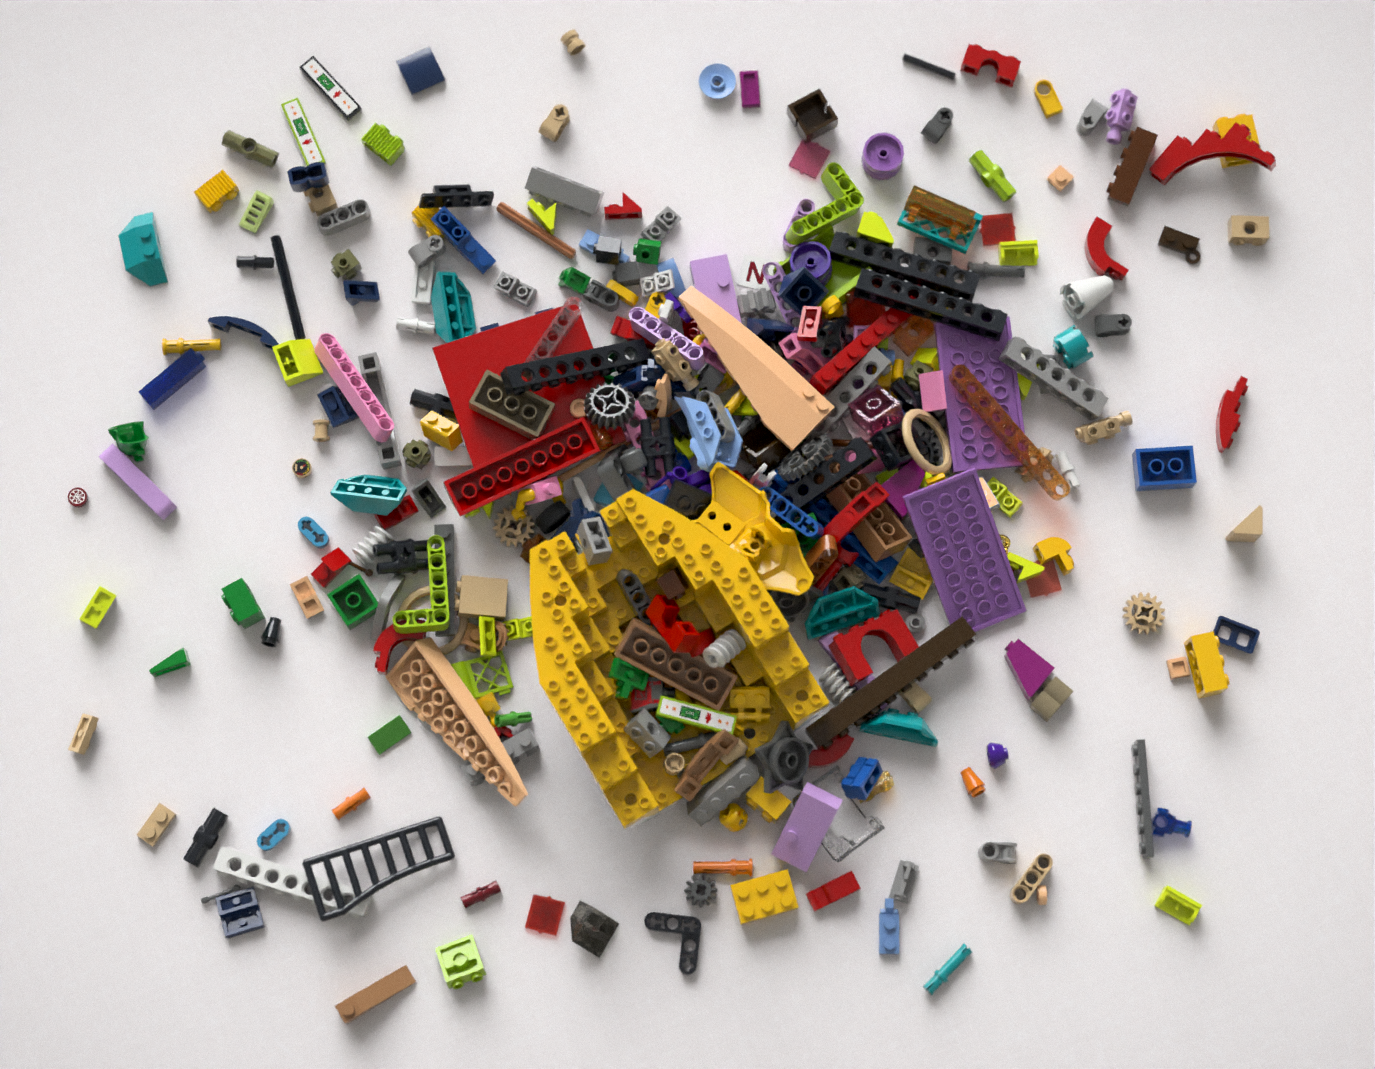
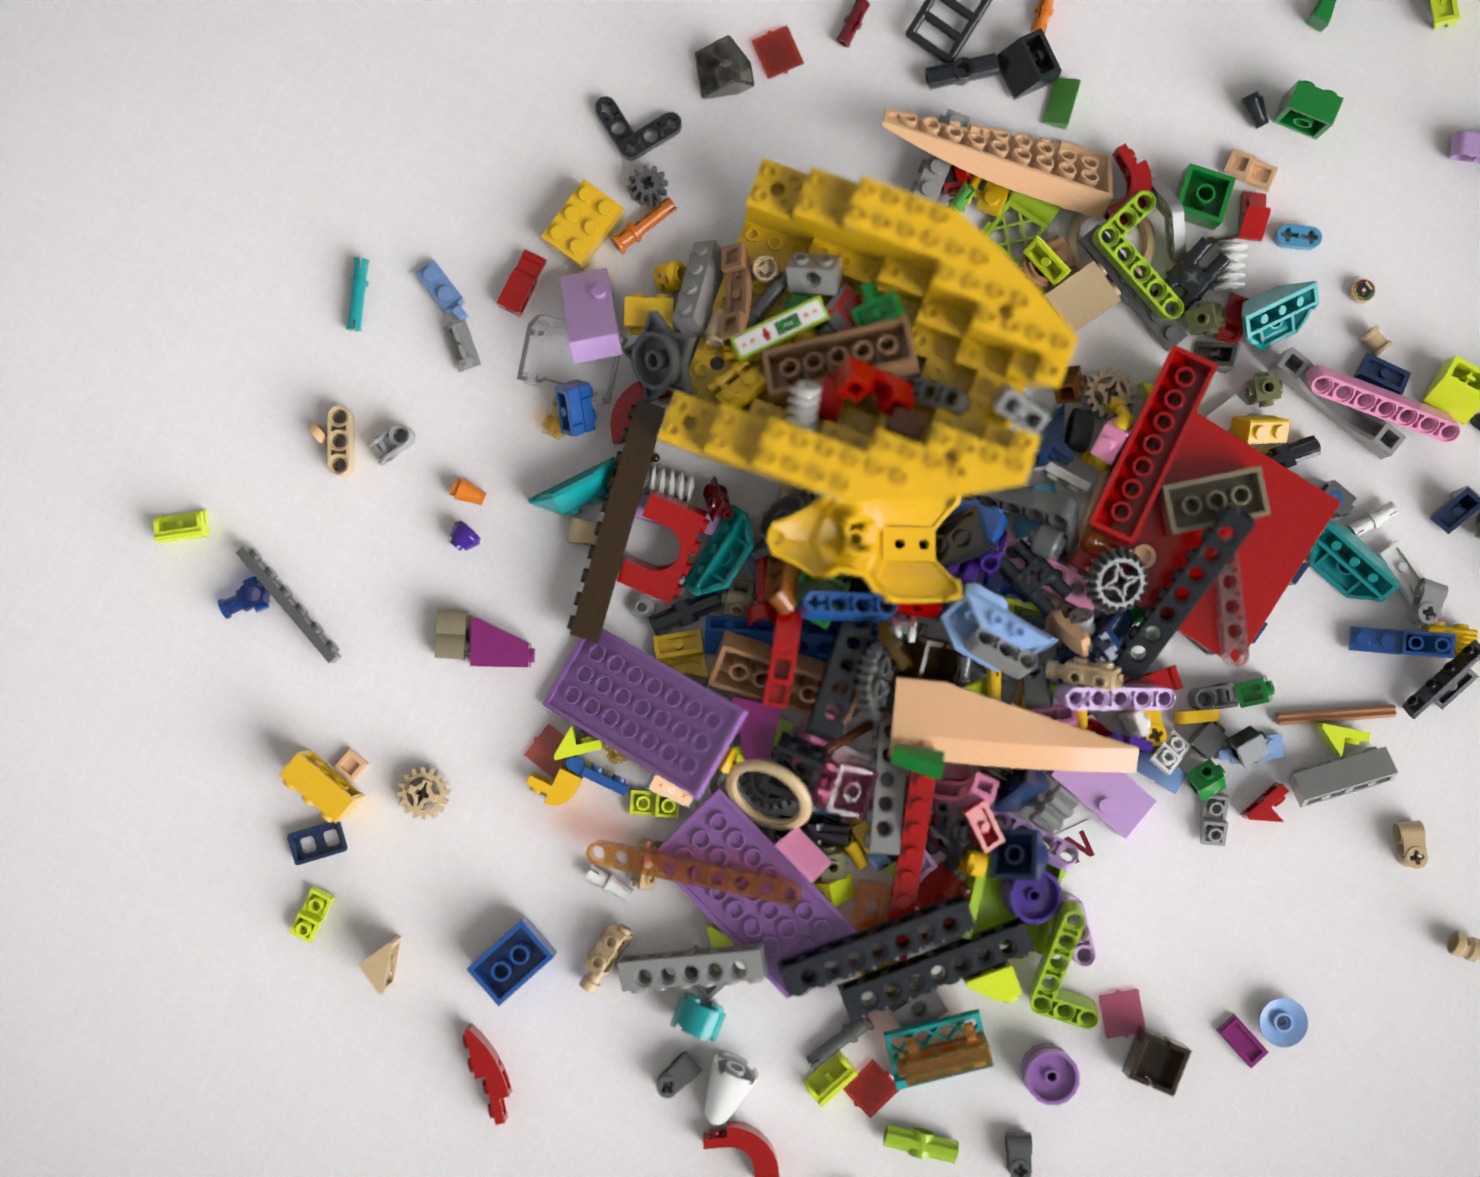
camera: 140 degrees right, 10 degrees up
(393, 773) = (1028, 64): none -> black slope
(416, 524) = (1206, 318): none -> olive brick
(427, 355) = (1340, 493): none -> dark grey brick
(448, 810) = (976, 67): none -> black piece
(515, 289) = (1305, 636): light grey slope -> none
(780, 468) = (894, 646): none -> dark brown hinge
(817, 386) = (919, 760): none -> green slope
(817, 648) = (717, 500): none -> dark red hinge
(1024, 539) = (596, 774): none -> blue hinge
(1271, 594) = (312, 914): none -> neon yellow slope

